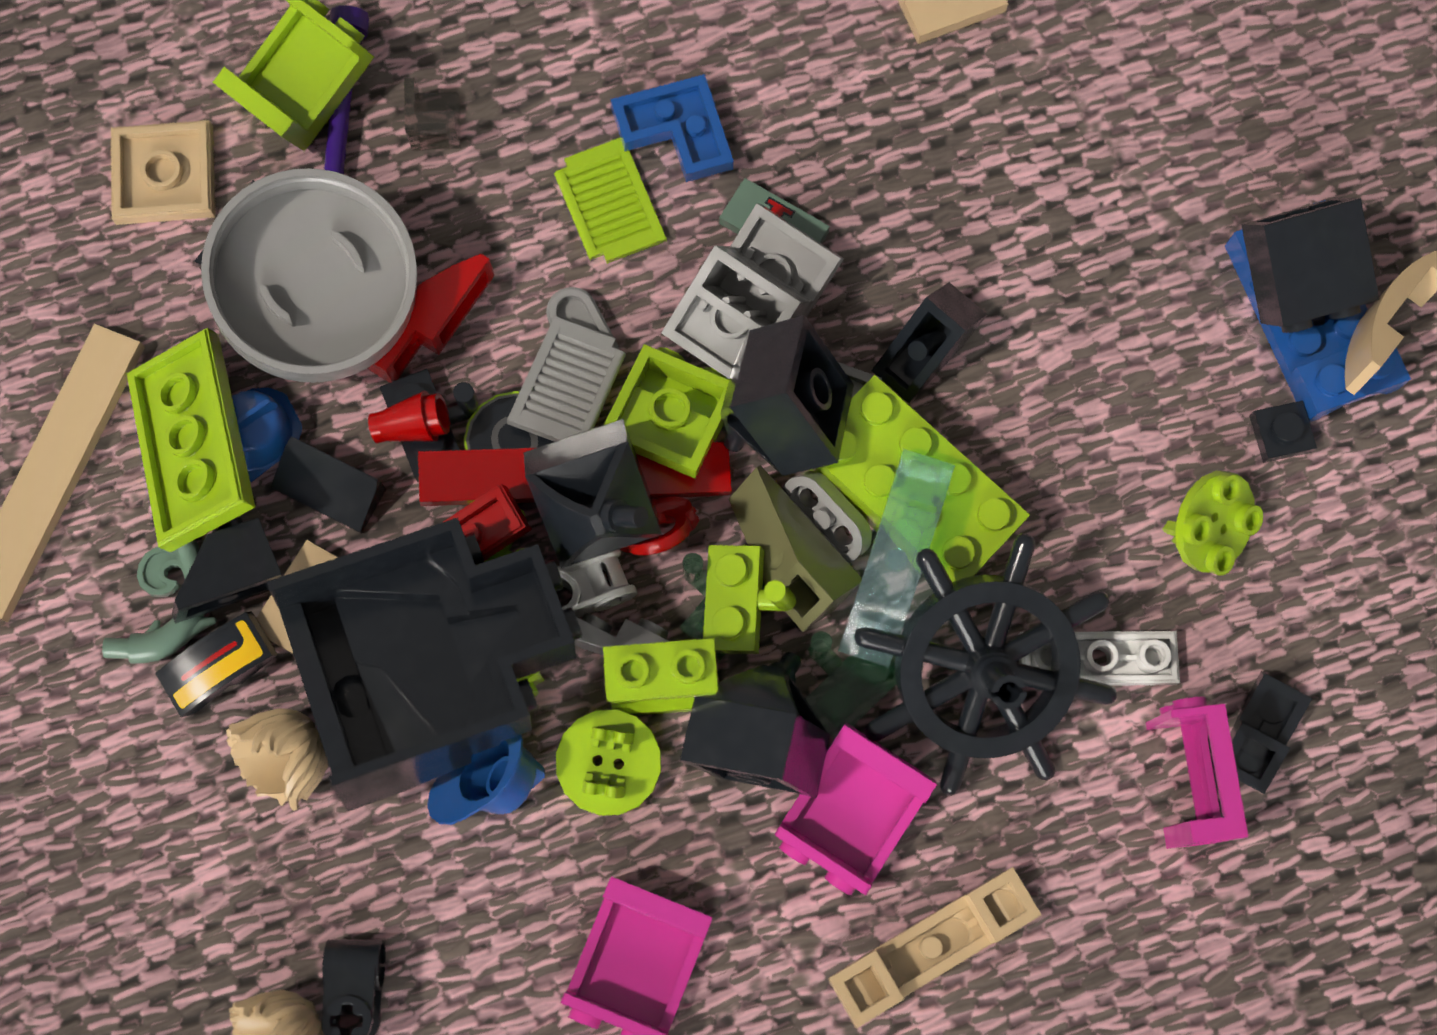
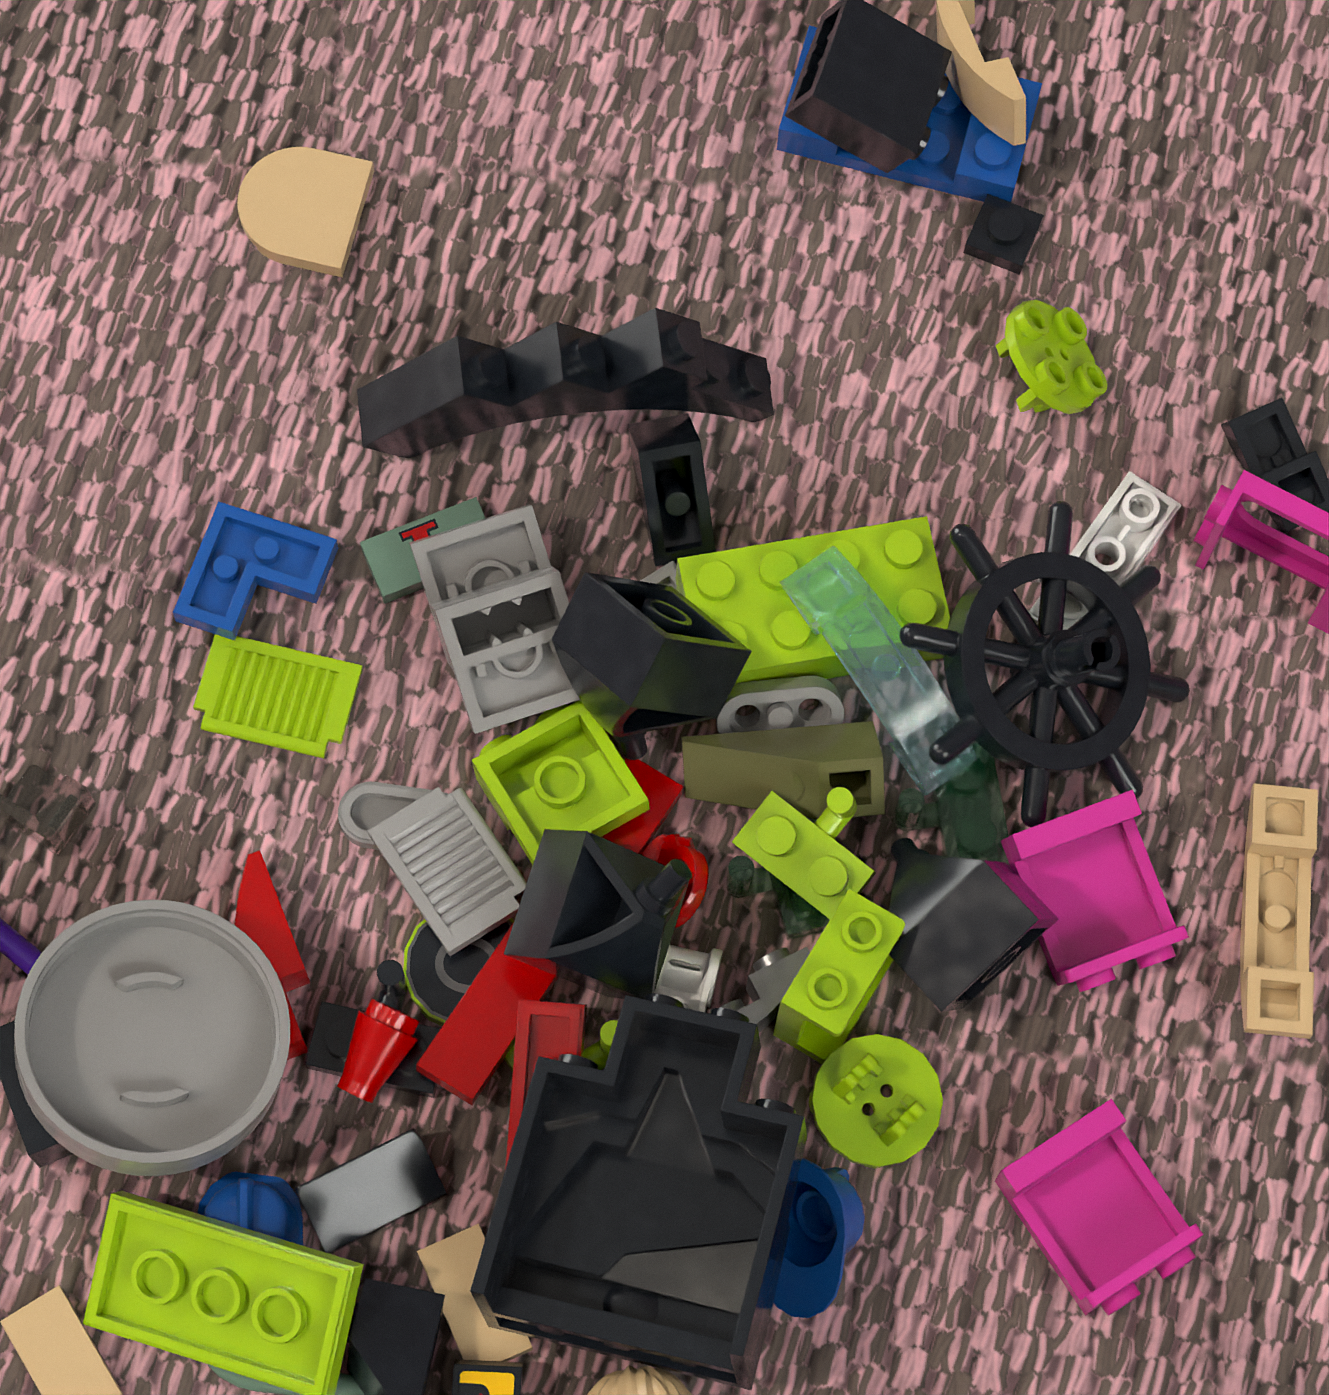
camera: 55 degrees left, 5 degrees down
(945, 211) = (558, 372): none -> black arch

